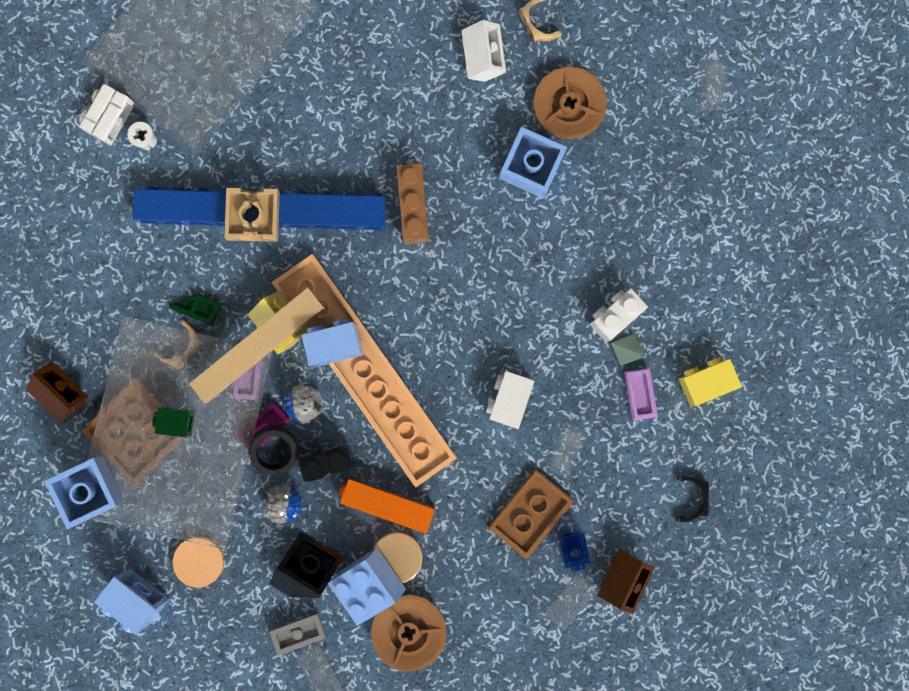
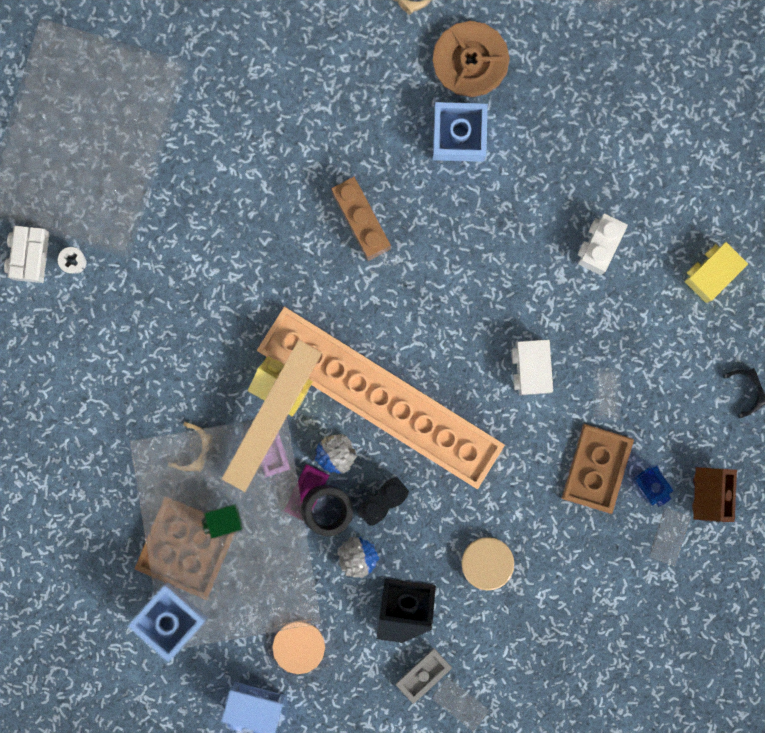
camera: 20 degrees left, 0 degrees up
(56, 392) = (95, 541): reddish brown brick -> none
(199, 308) = (195, 404): dark green tile -> none
(267, 223) = (231, 299): tan brick -> none
(295, 209) = (216, 284): blue brick -> none
(333, 343) = (344, 383): light blue brick -> none
(367, 586) = (471, 601): light blue brick -> none
(386, 504) = (457, 517): orange brick -> none
(400, 650) = (525, 650): medium nougat piece -> none
(483, 51) = (367, 43): white brick -> none
(627, 350) = (624, 273): sand green slope -> none
(640, 394) = (654, 311): lavender tile -> none

